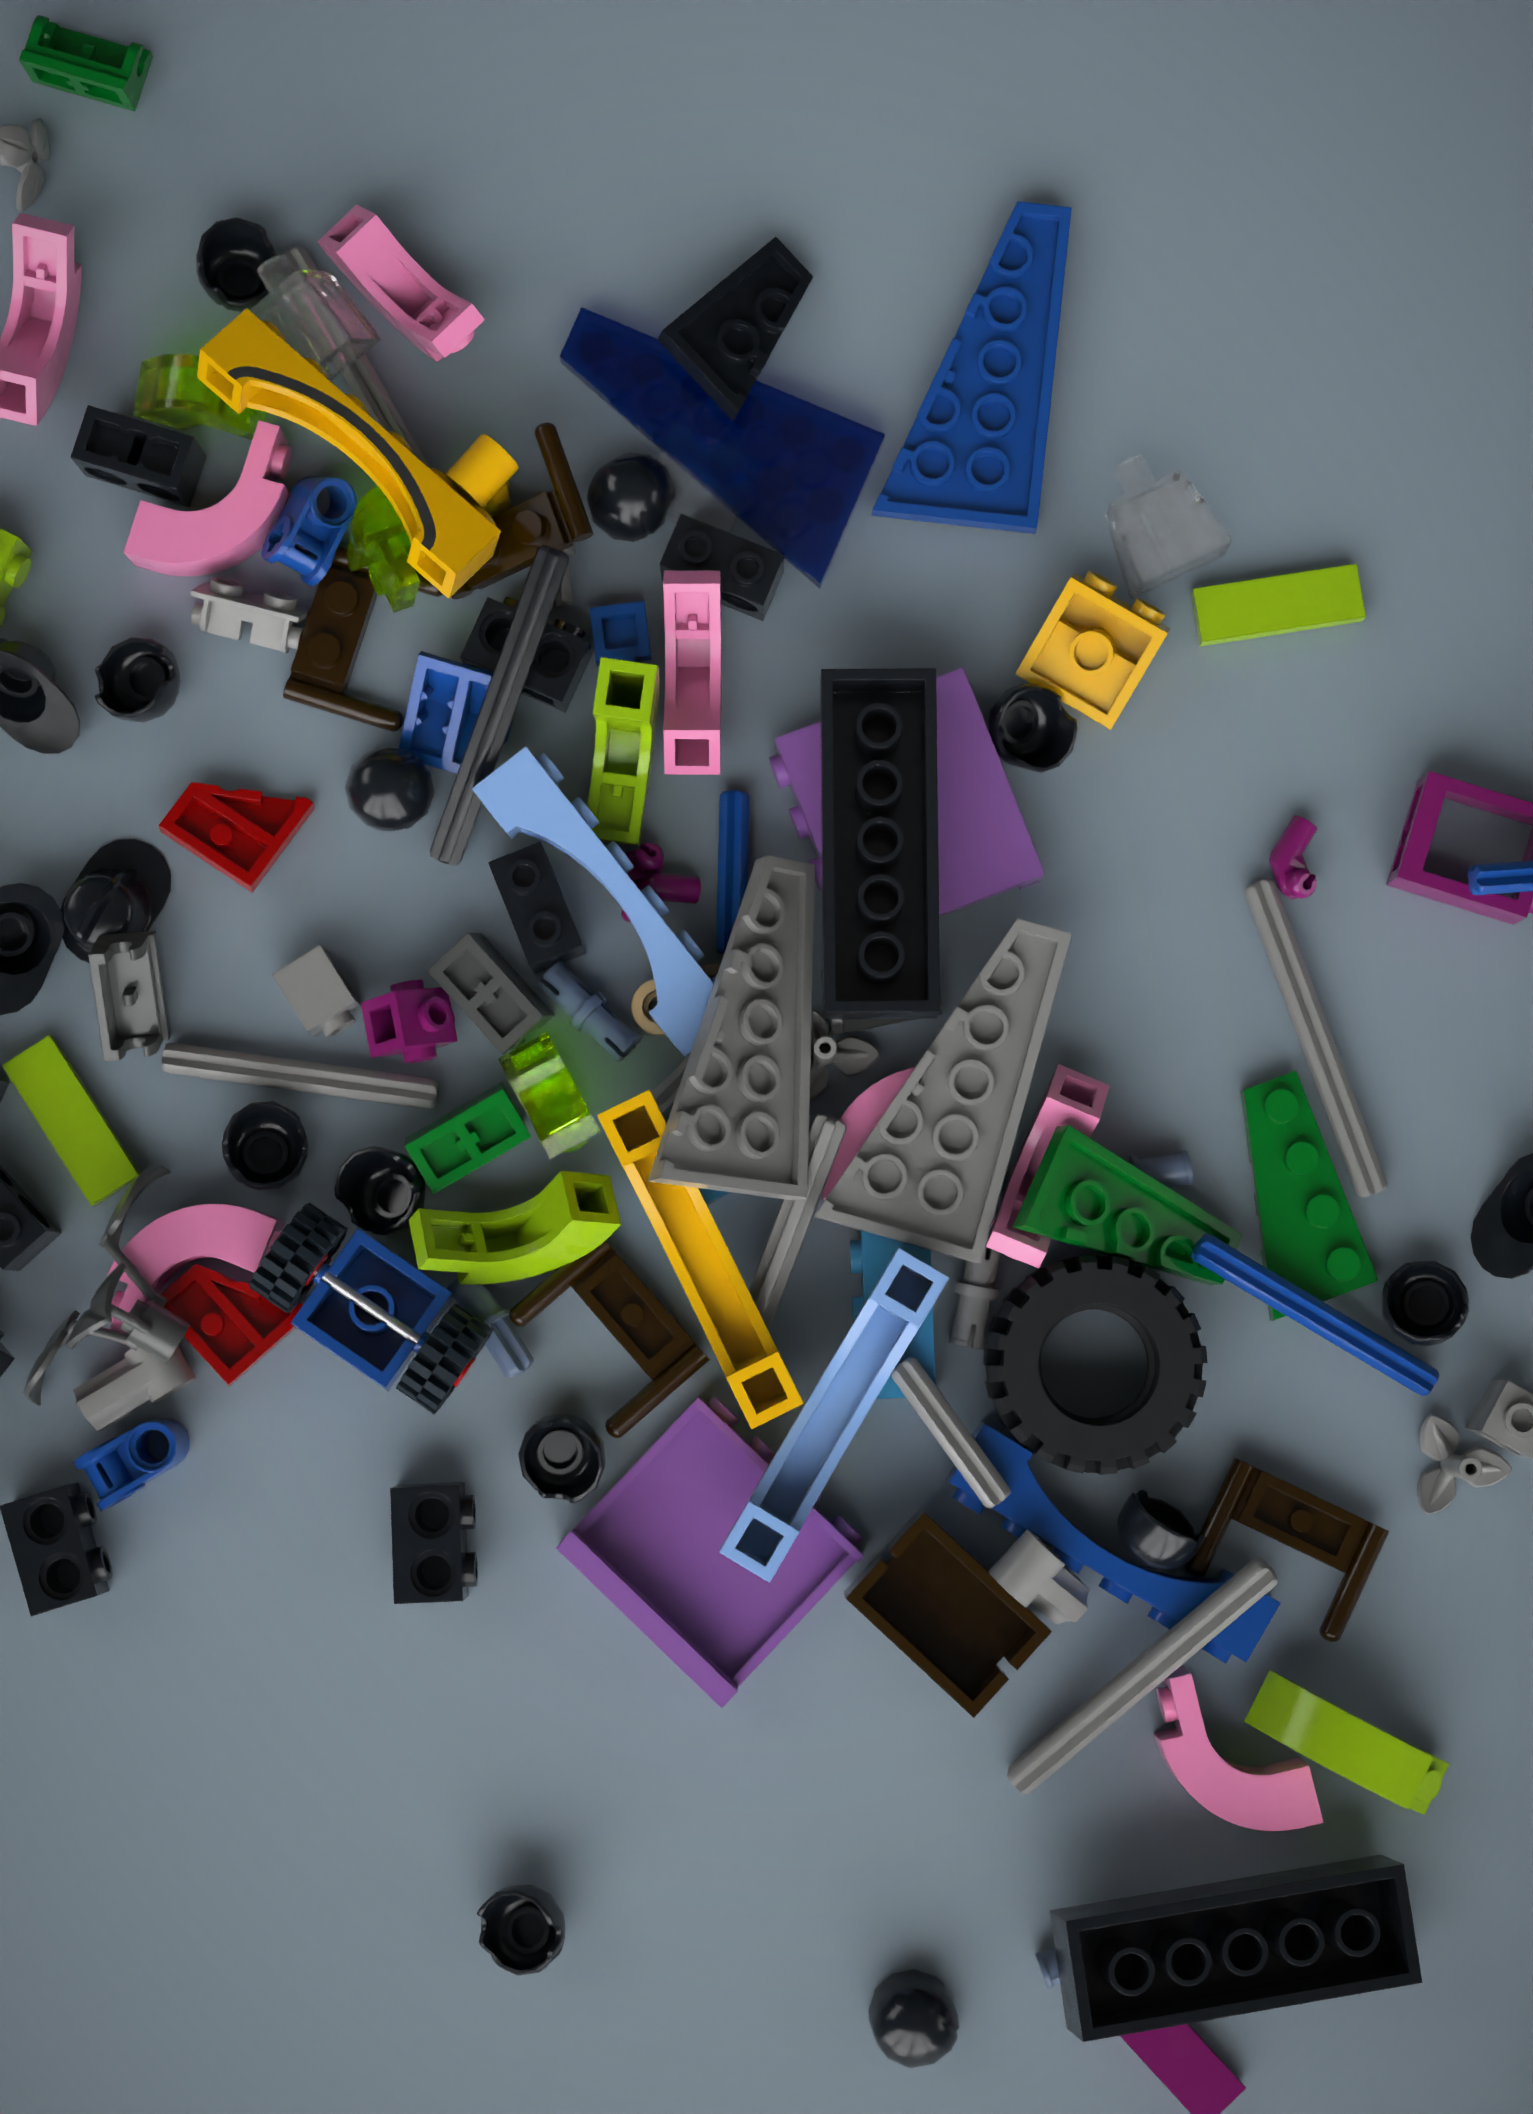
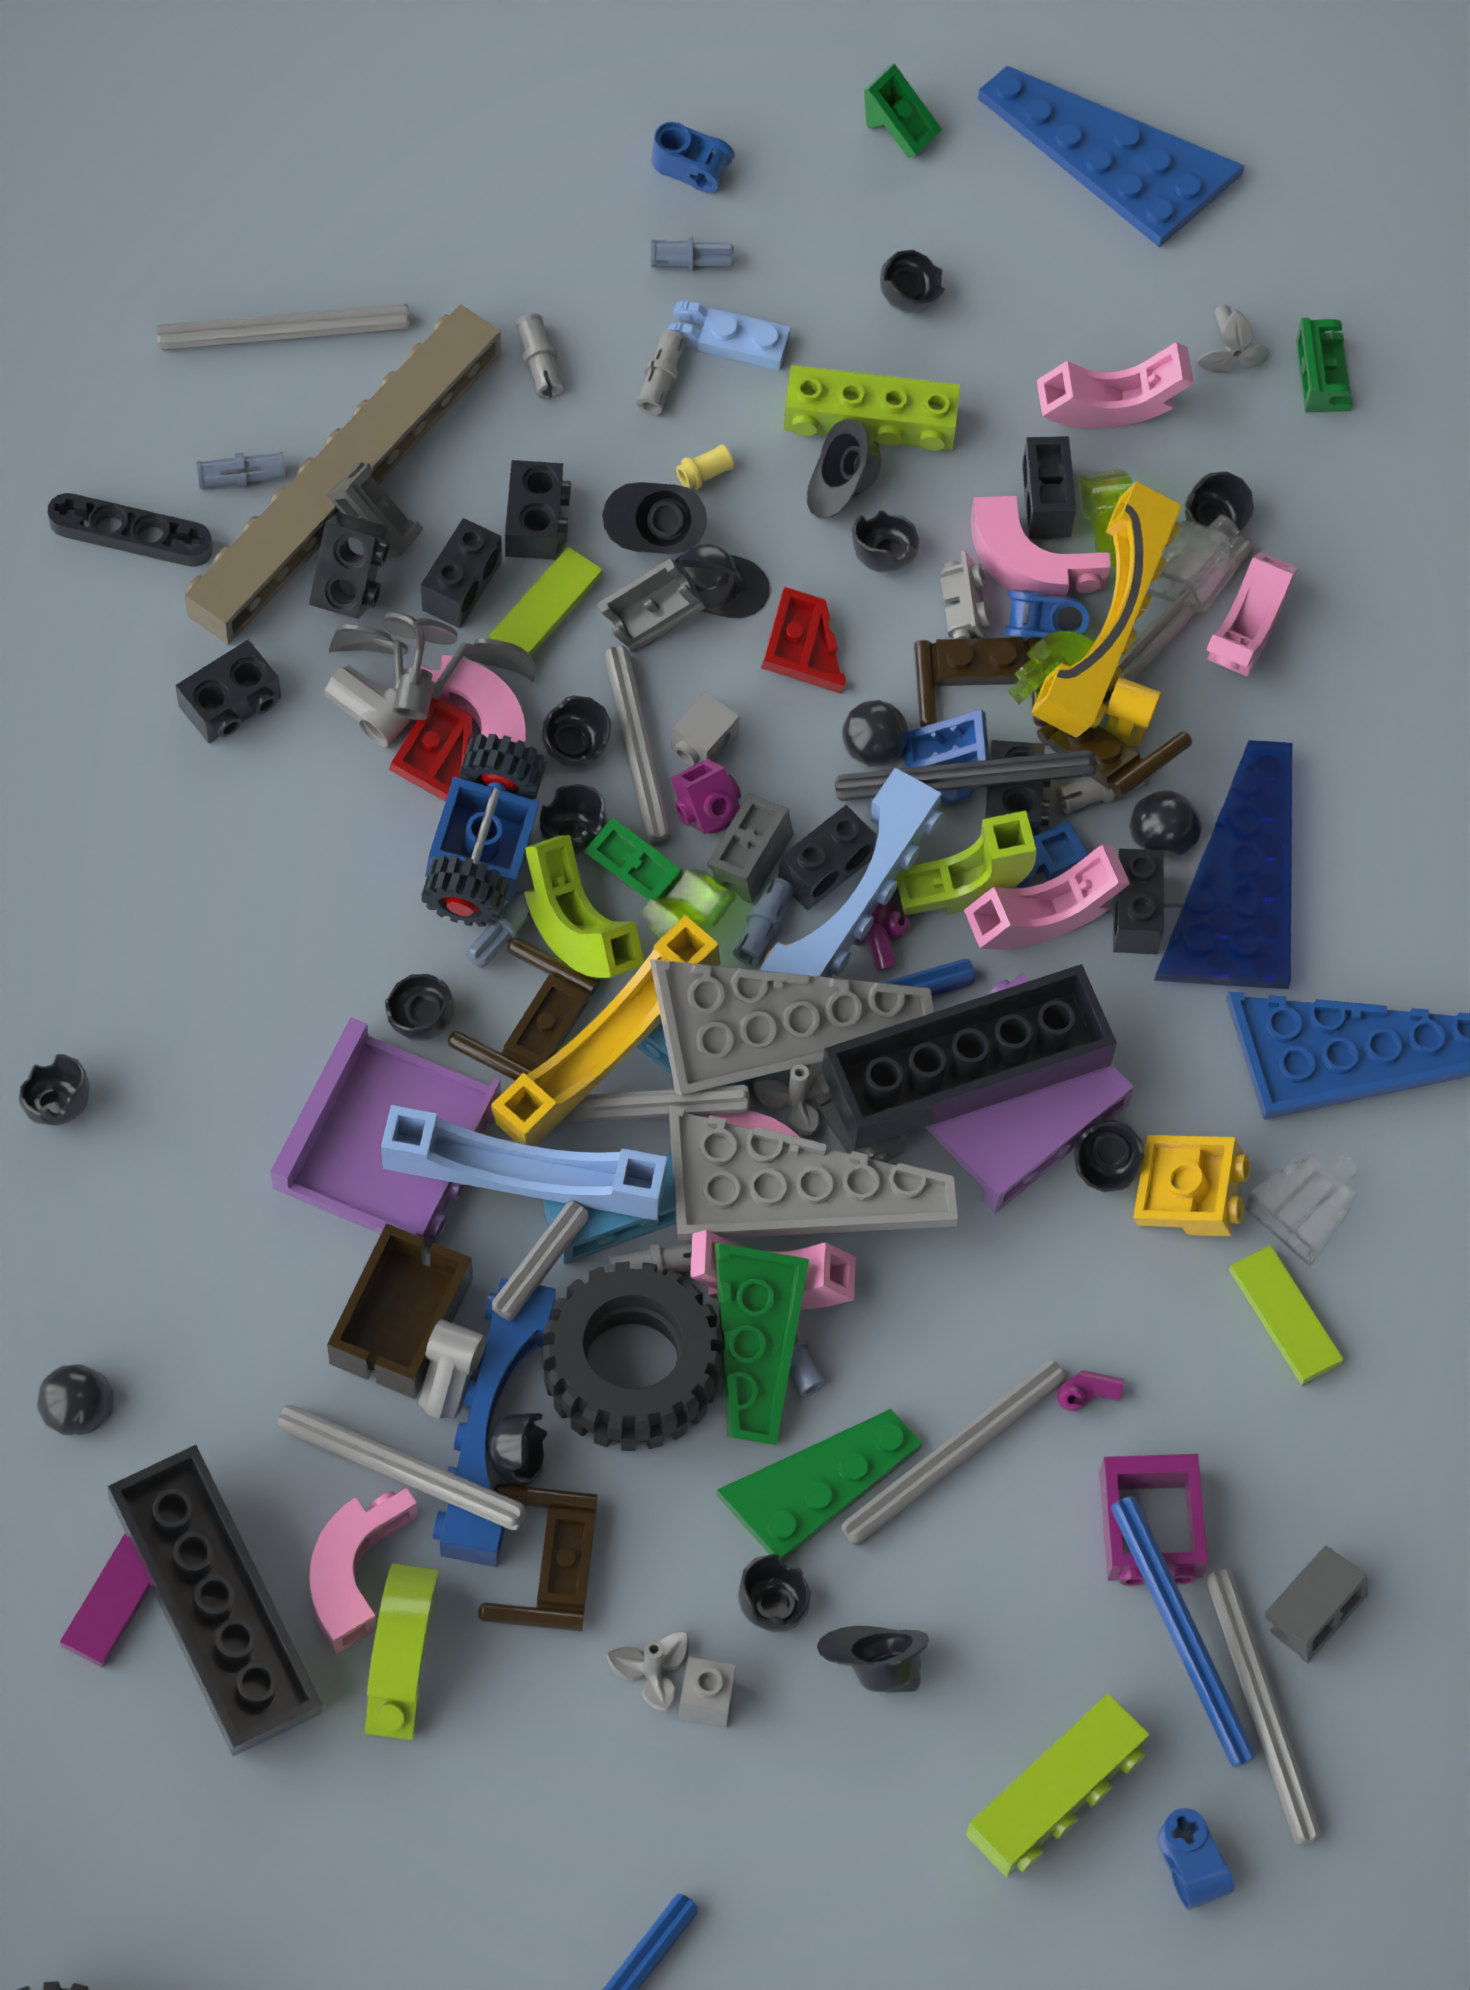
camera: 65 degrees right, 20 degrees down
(124, 1462) = (306, 717): blue piece -> none
(415, 1541) = (317, 928): black brick -> none
(737, 324) = (1327, 851): black wing -> none
(1315, 1314) = (732, 1514): blue axle -> none

